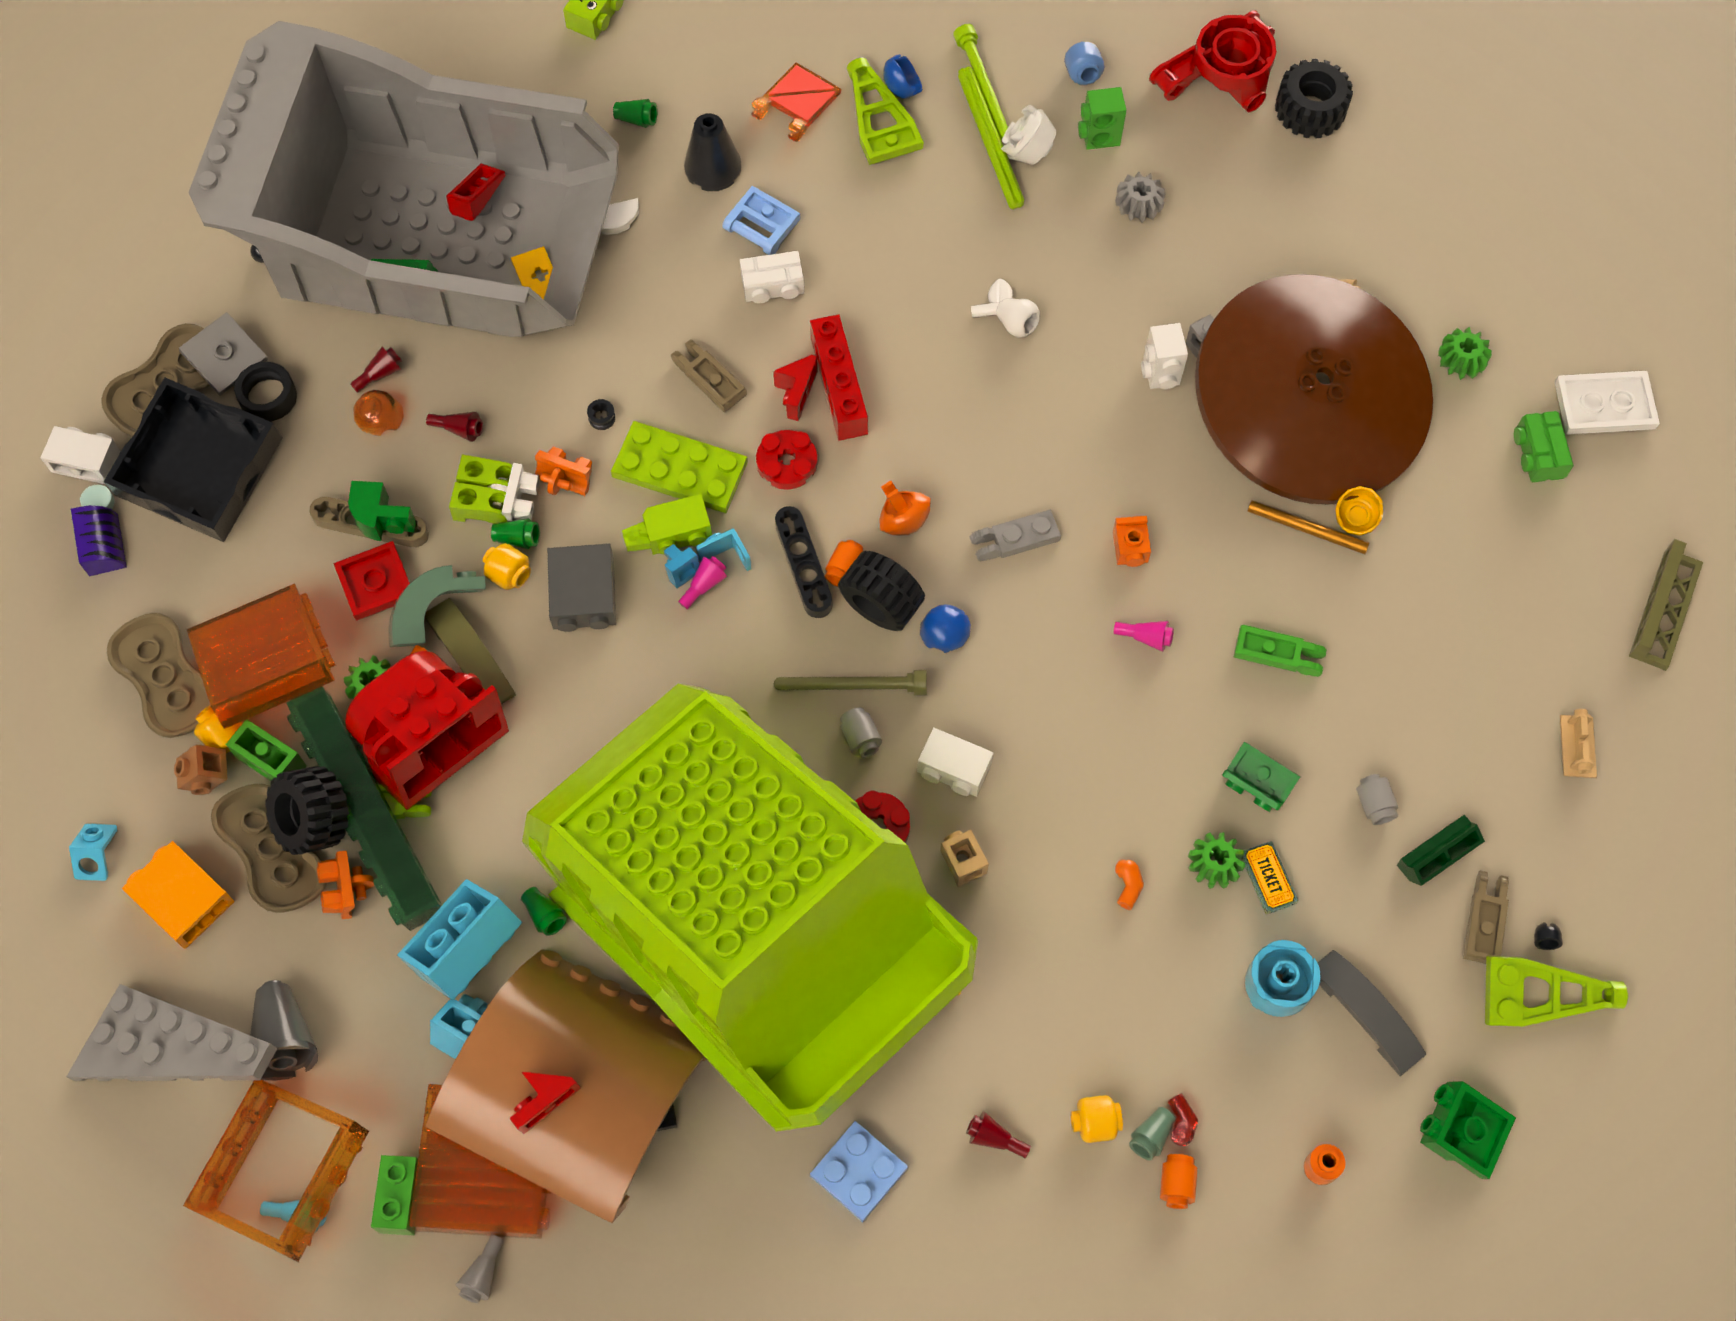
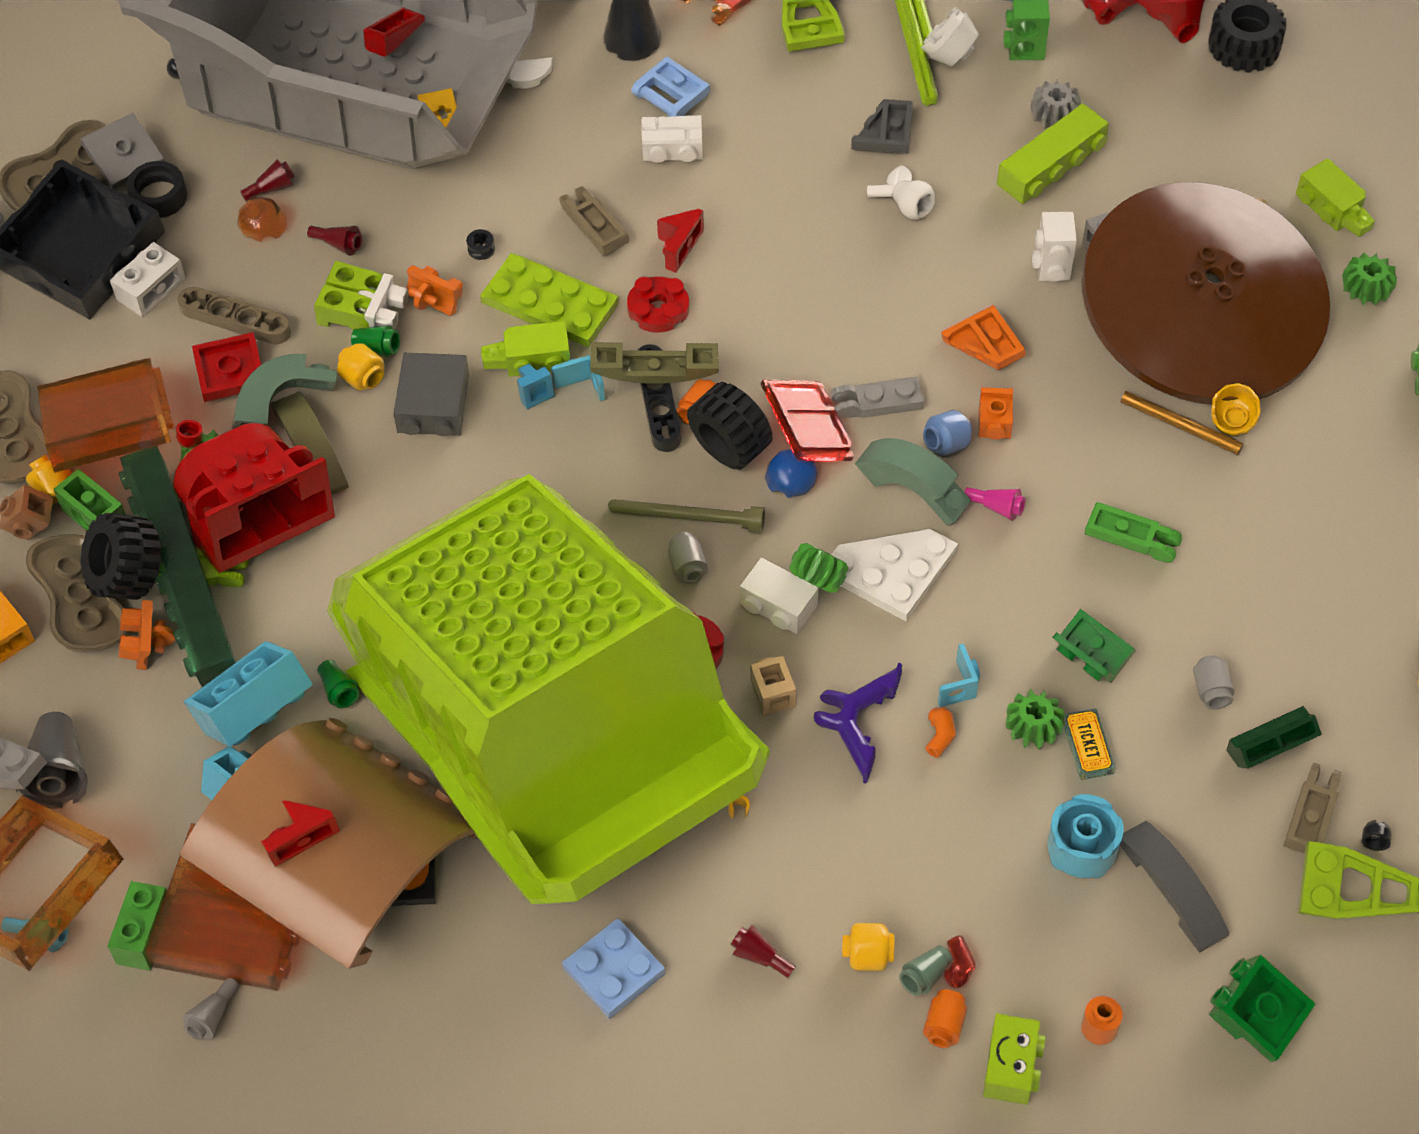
camera: 10 degrees right, 10 degrees down
(275, 494) = (147, 279): none -> white brick
(354, 663) = (192, 431): none -> red hinge
(372, 513) = (240, 302): green brick -> none
(707, 576) = (560, 397): dark pink cone -> none
(796, 531) = (654, 366): none -> olive slope
(839, 377) = (722, 234): red brick -> none
(903, 511) = (766, 359): orange piece -> none
(954, 570) = (808, 420): none -> clear red piece
(980, 241) = (887, 128): none -> dark grey wing
(990, 732) = (818, 567): none -> bright green gear
(1038, 885) = (846, 720): none -> dark purple piece
(1056, 717) = (896, 568): none -> white plate
(1064, 613) = (917, 469): none -> sand green arch
(1089, 567) = (947, 432): none -> medium blue head
(1110, 460) = (986, 339): none -> orange wing
(1145, 251) = (1052, 153): none -> lime brick
(1149, 821) = (970, 673): none -> medium azure bracket
(1247, 1213) = (1012, 1059): none -> lime brick
(1421, 269) = (1335, 198): none -> lime hinge

